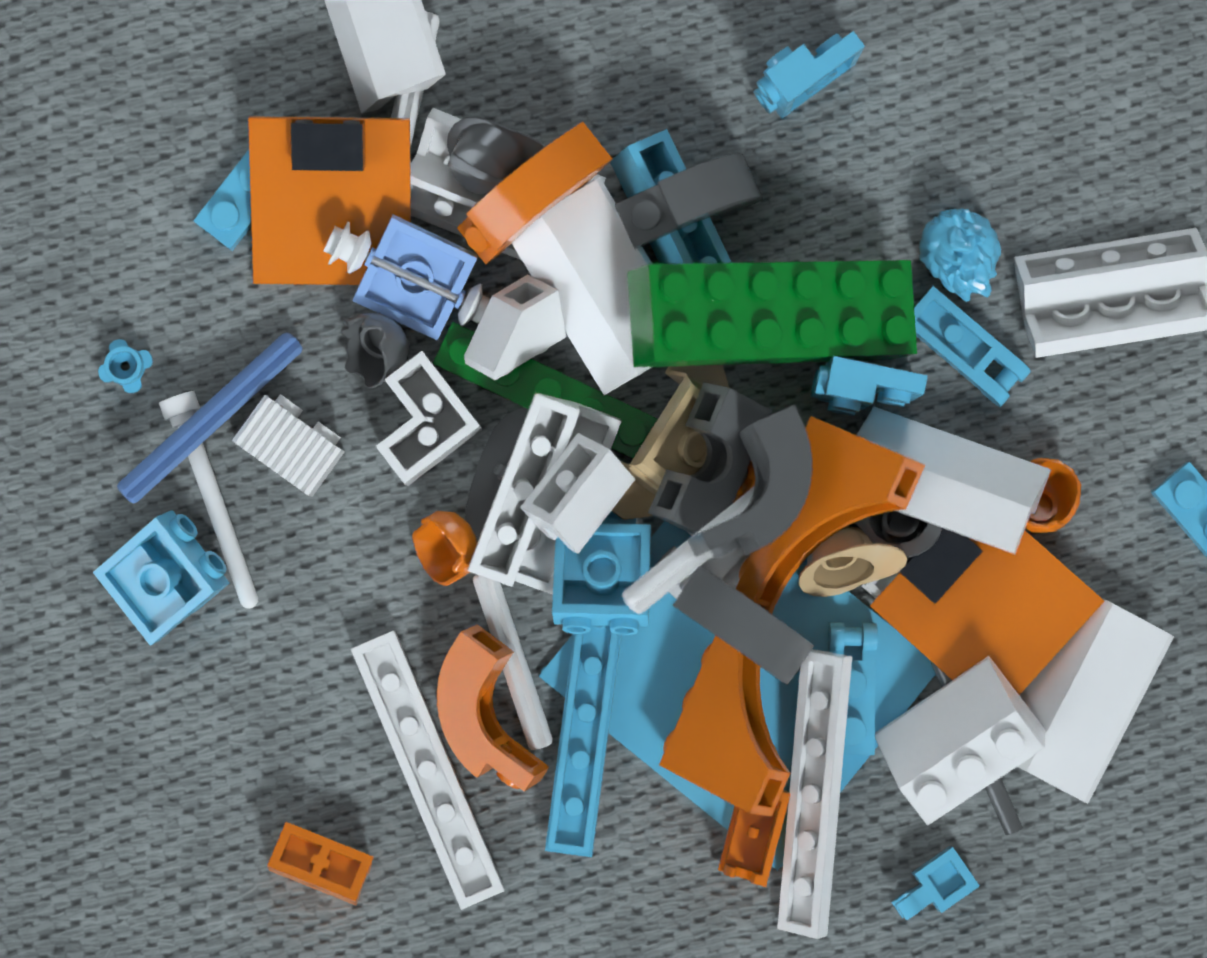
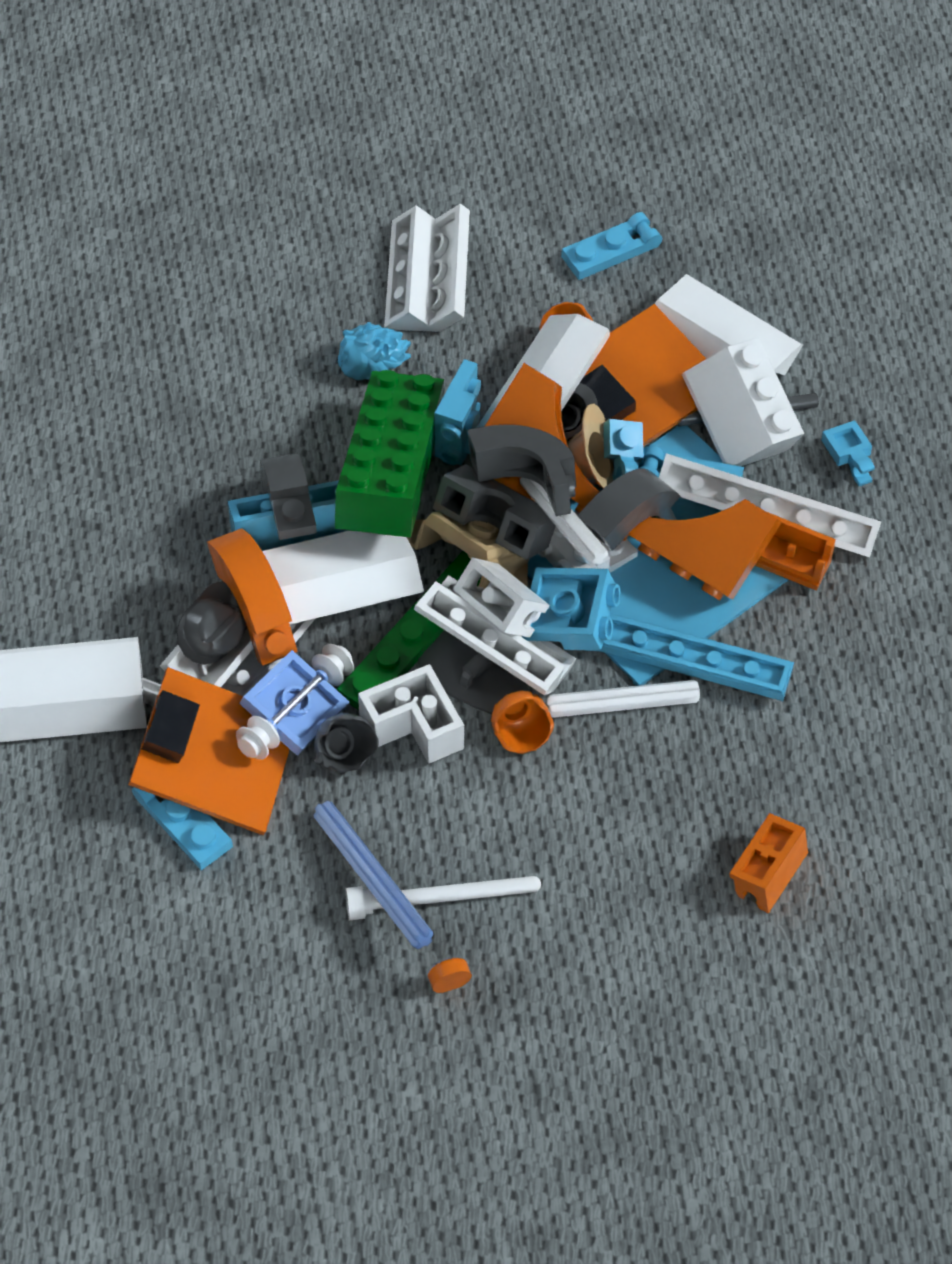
camera: 75 degrees left, 30 degrees down
(109, 528) = (449, 975): none -> orange tile
(121, 353) = (305, 931): medium azure plate -> none
(162, 575) = (500, 938): medium azure plate -> none
(288, 444) = (409, 822): white brick -> none
(428, 769) = (701, 772): white plate -> none
(469, 715) = (649, 729): orange arch -> none
(516, 327) = (355, 631): white slope -> none
(798, 76) = (211, 412): medium azure plate -> none
(869, 596) = (624, 444): none -> medium azure plate
(967, 346) = (447, 356): medium azure plate -> none

